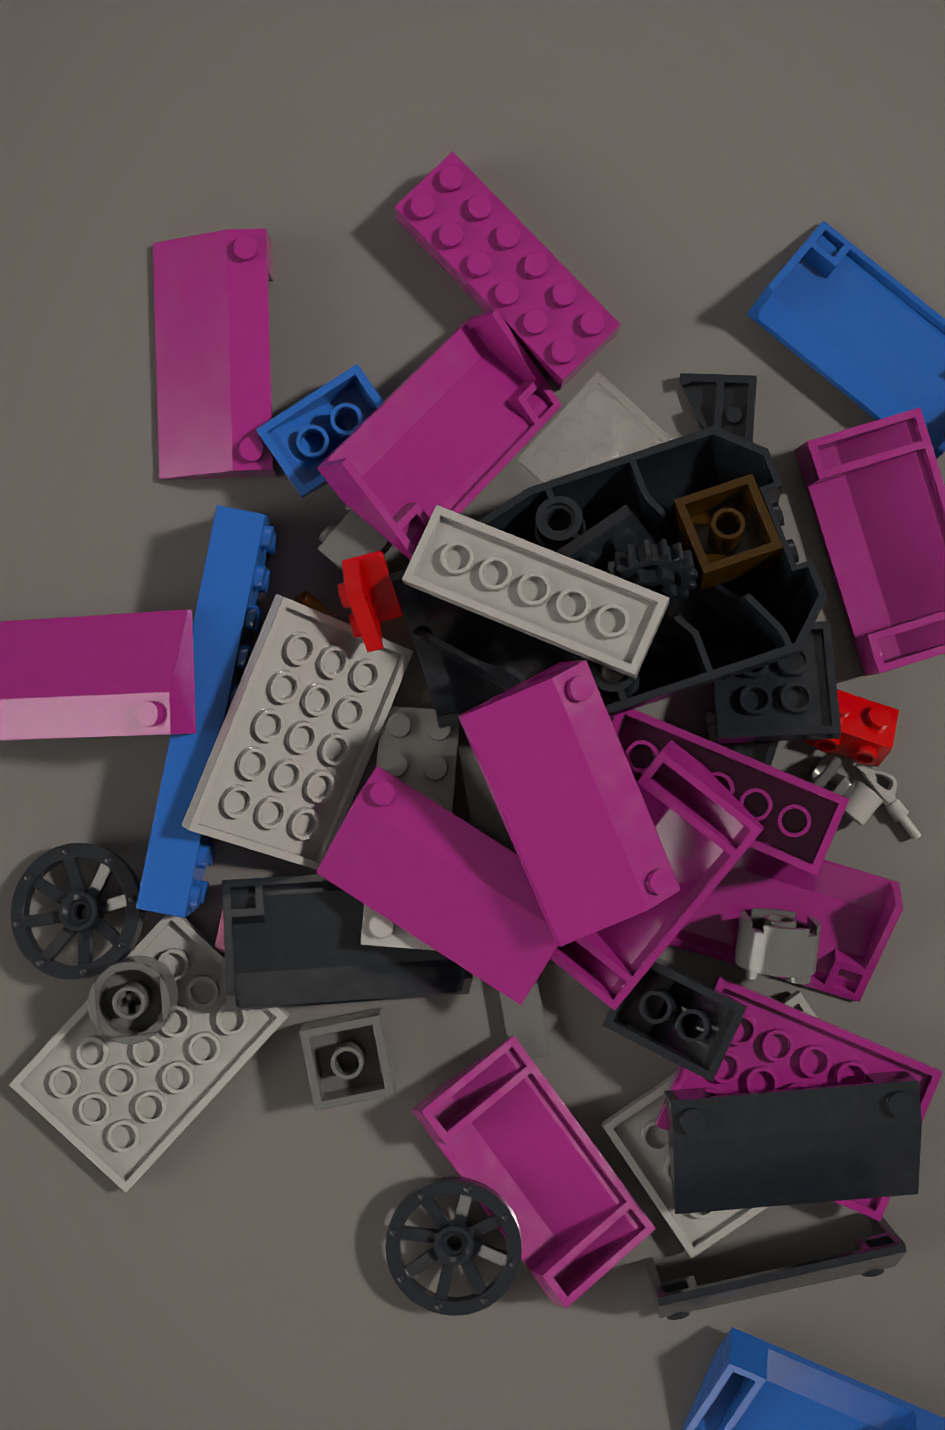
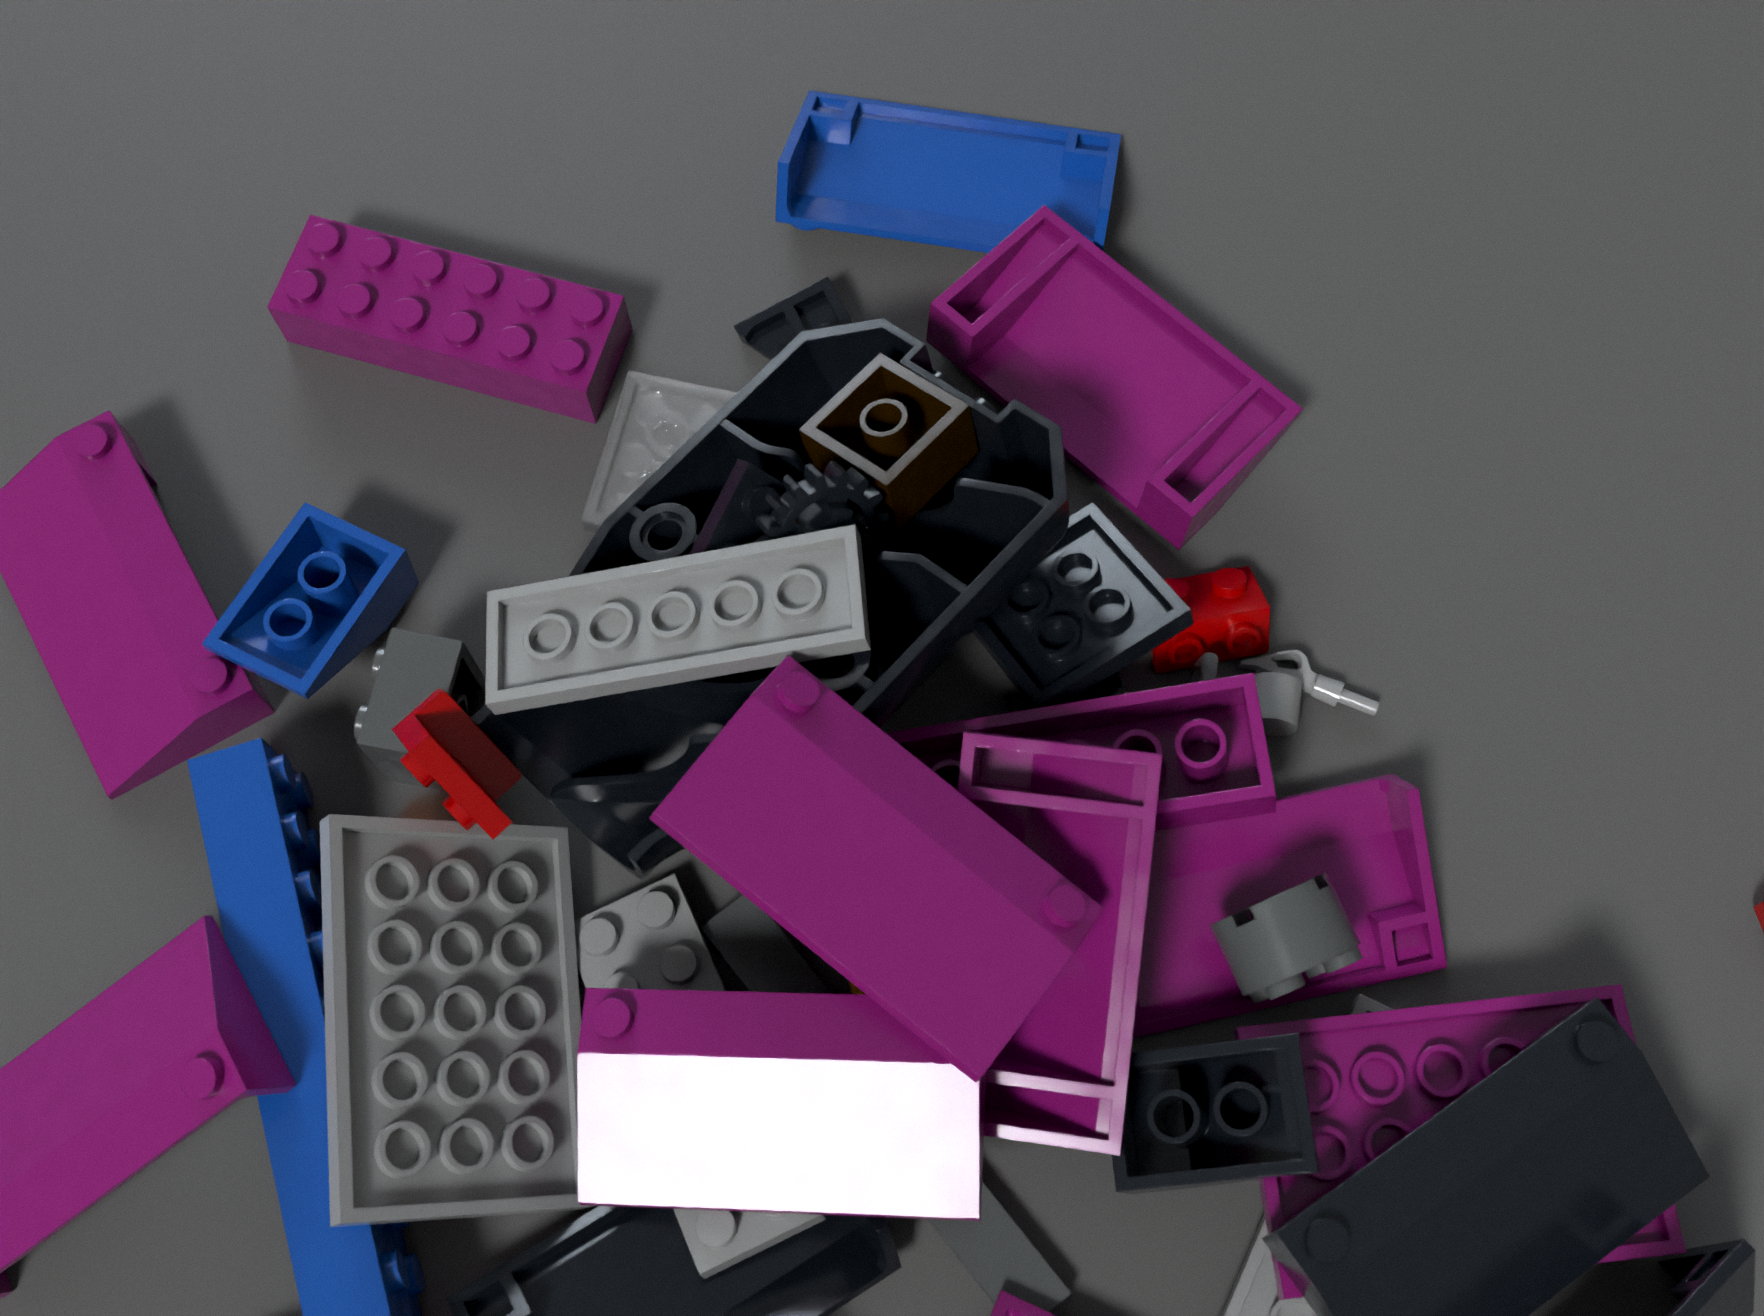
camera: 25 degrees left, 20 degrees down
(442, 432) = (459, 515): magenta slope -> none

